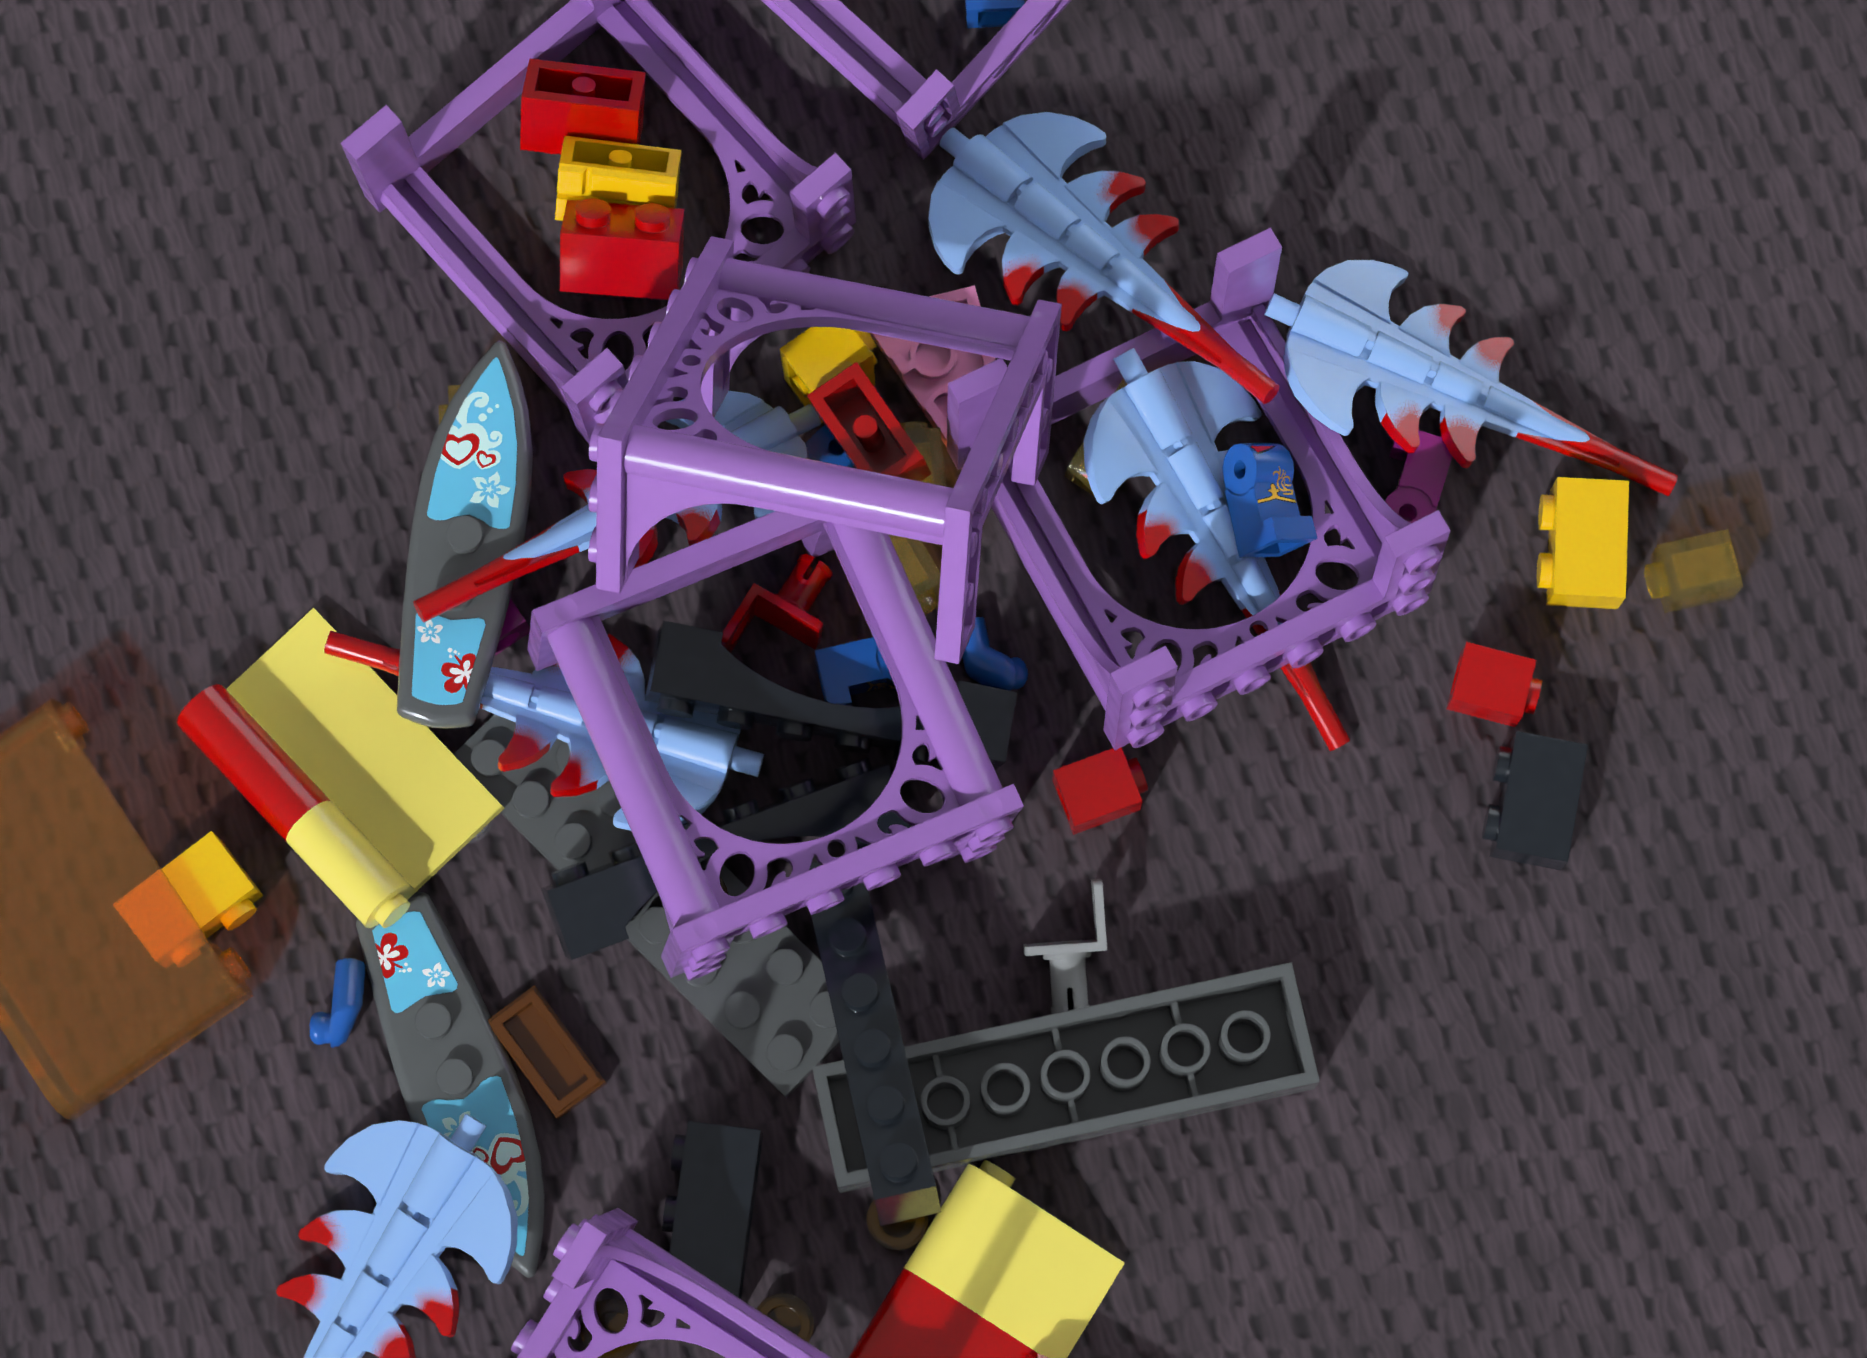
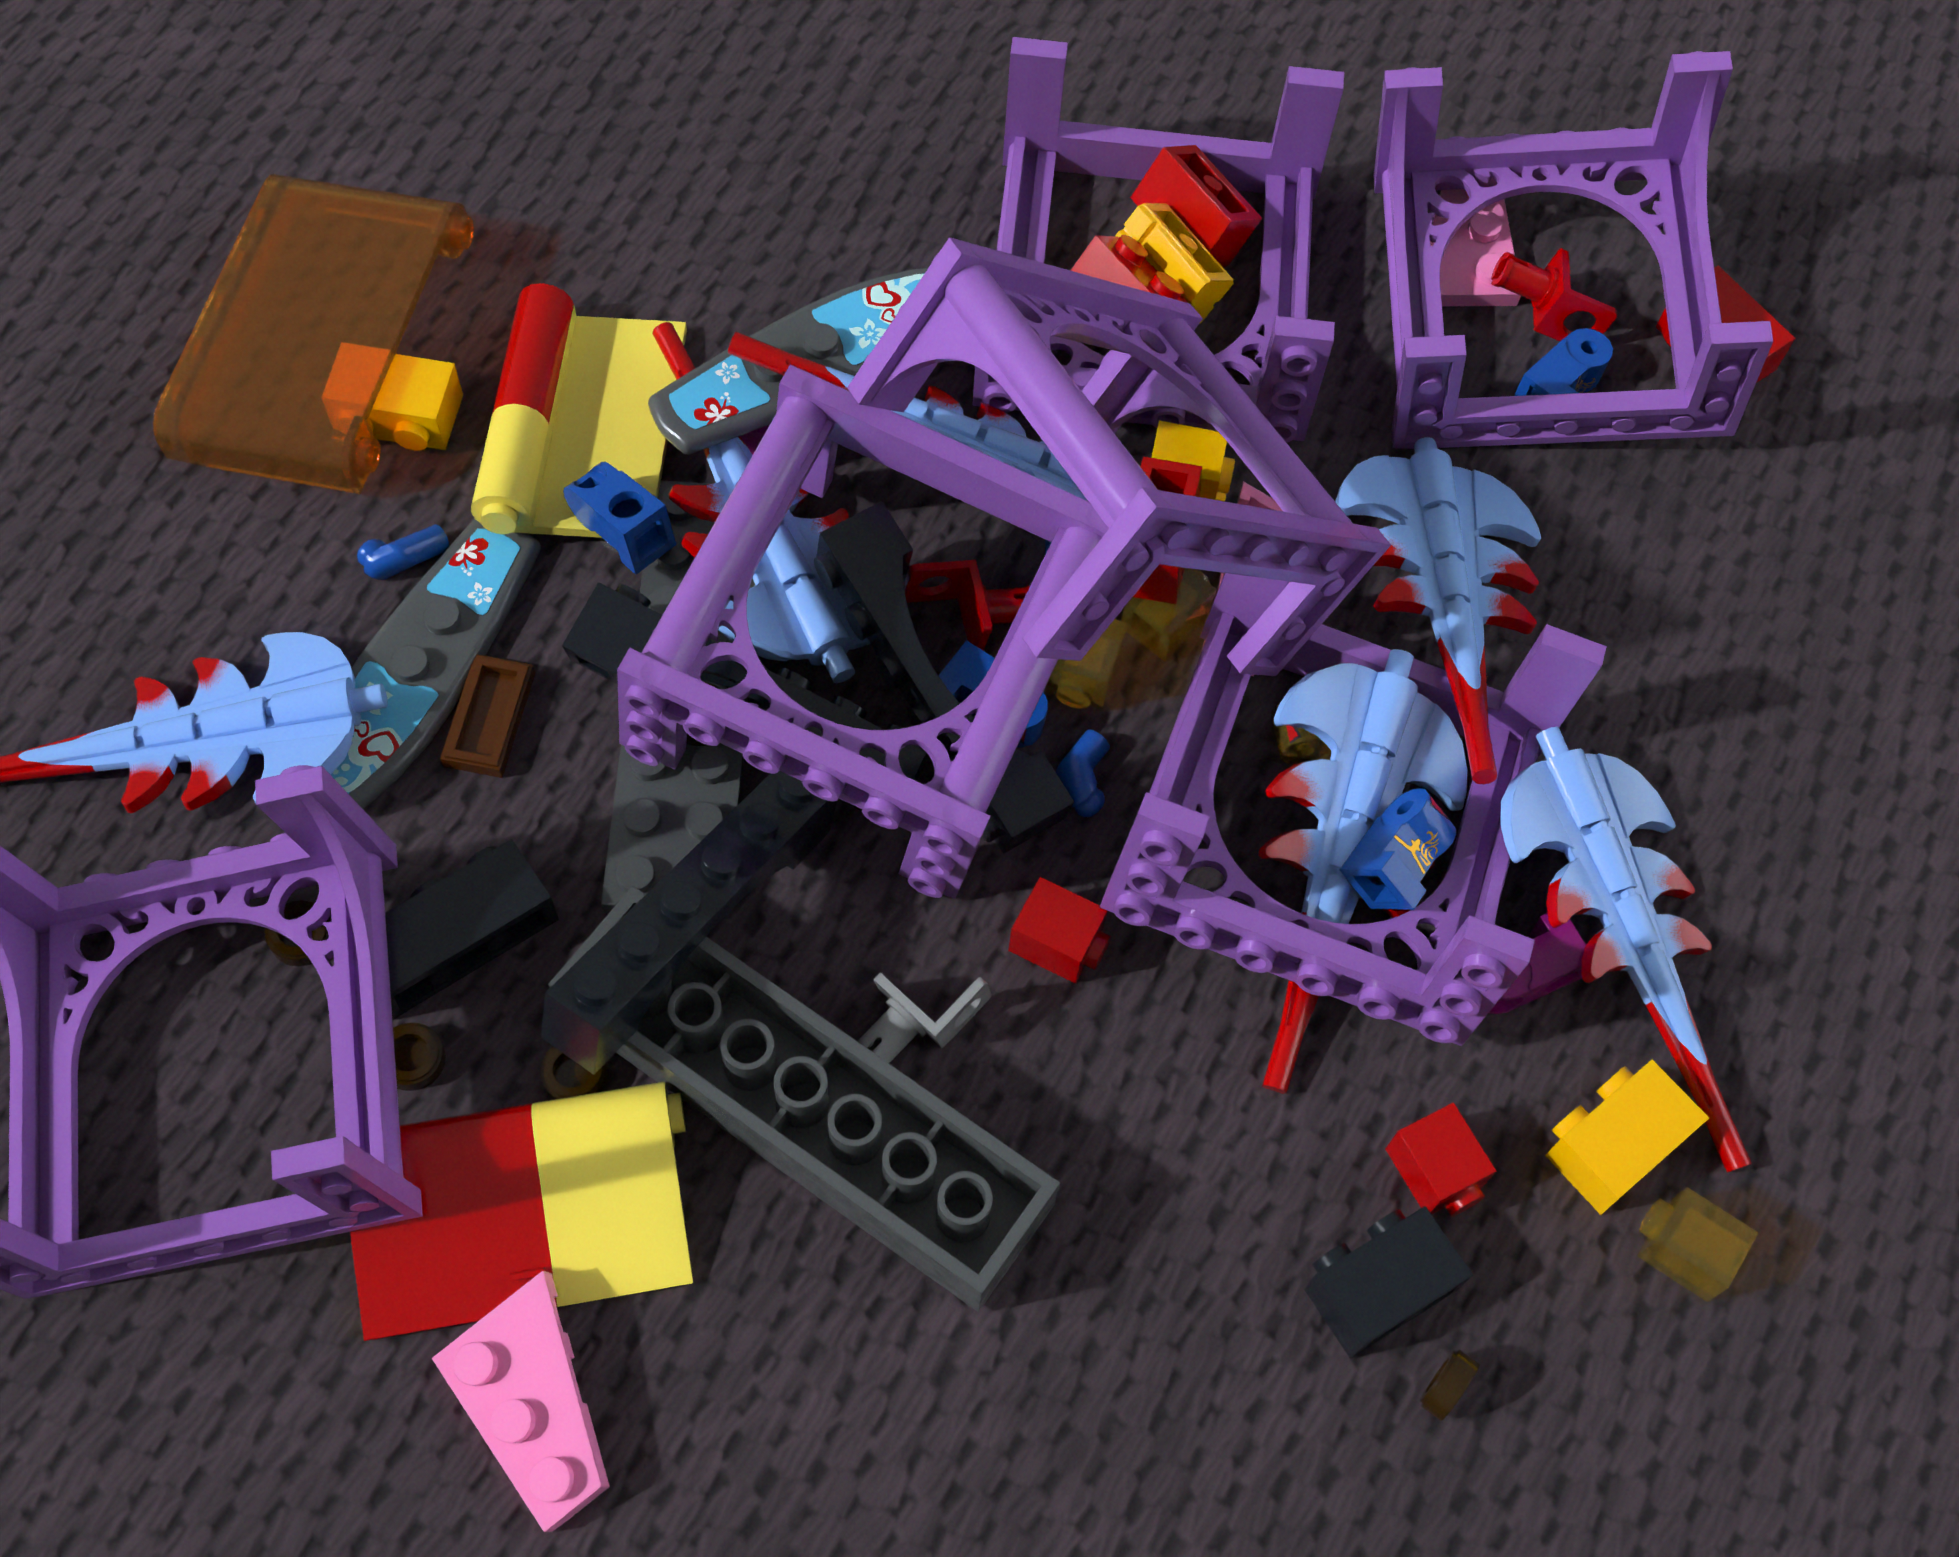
camera: 40 degrees right, 15 degrees down
(476, 817) = (622, 515): none -> blue leg
(1636, 825) = (1449, 1384): none -> dark brown tile

